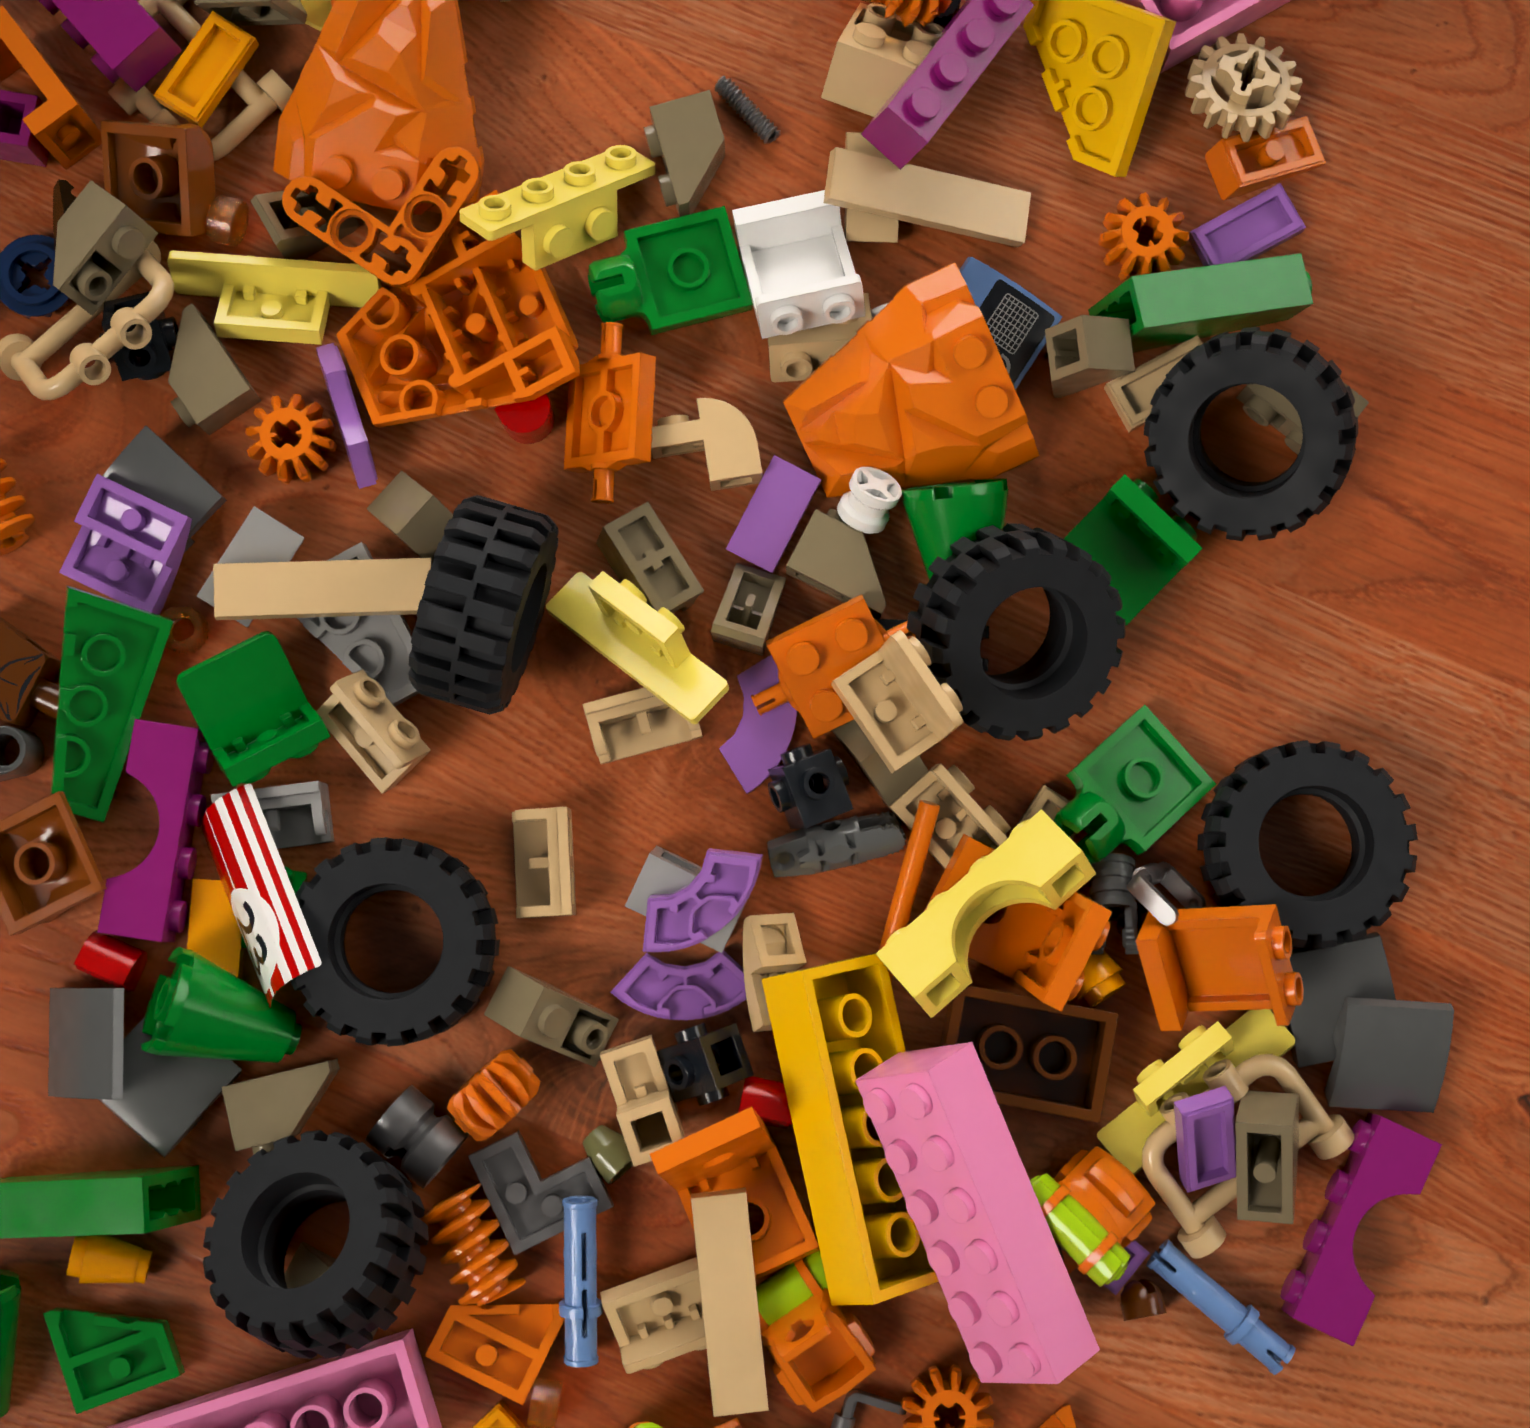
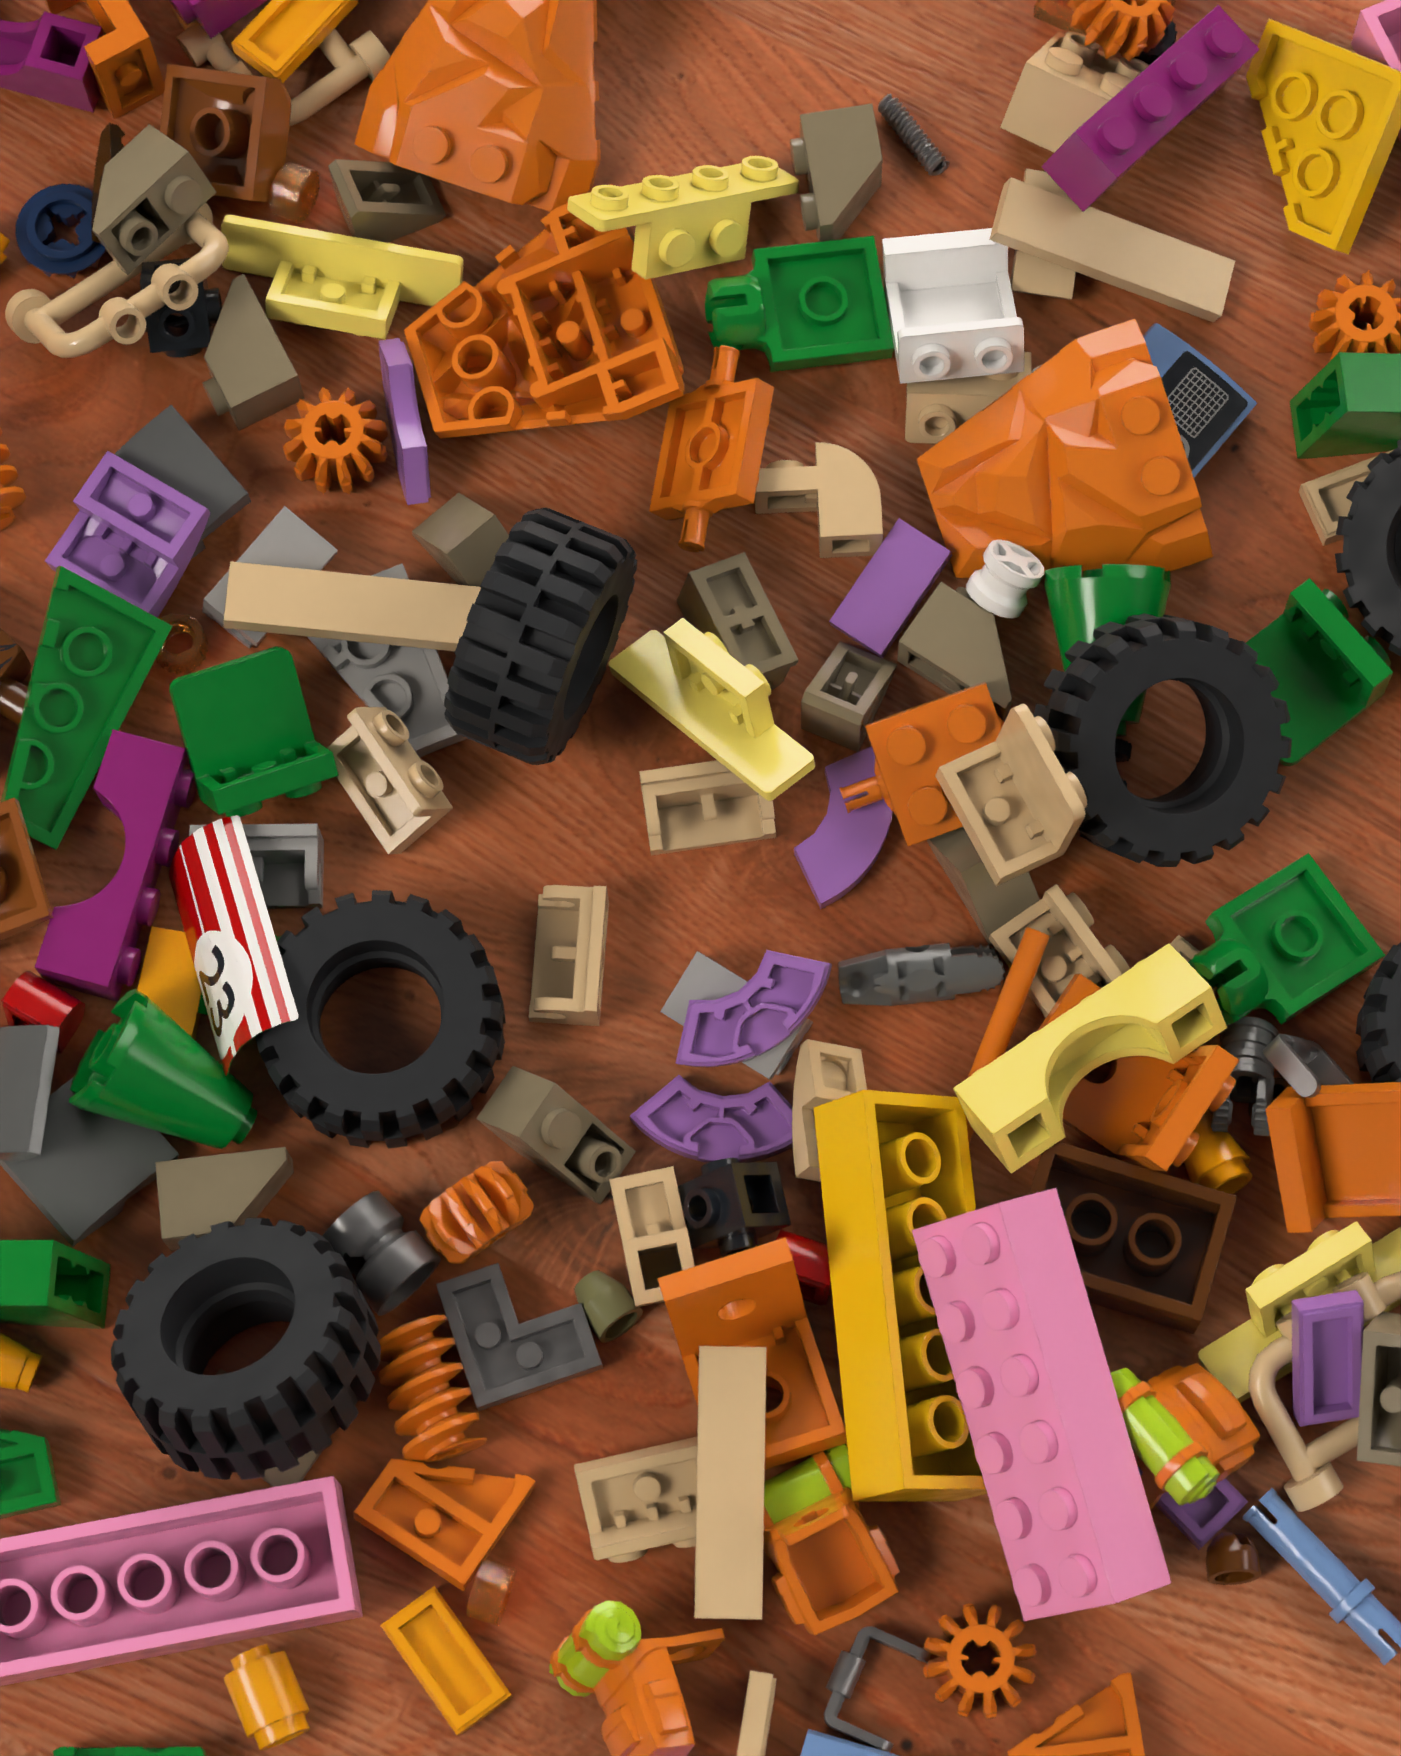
camera: 10 degrees right, 10 degrees down
(401, 231) = (496, 219): orange beam -> none
(528, 420) = (613, 447): red brick -> none
(580, 1299) = (552, 1446): medium blue pin -> none
(809, 786) = (896, 899): black brick -> none
(1088, 352) = (1279, 438): dark tan slope -> none

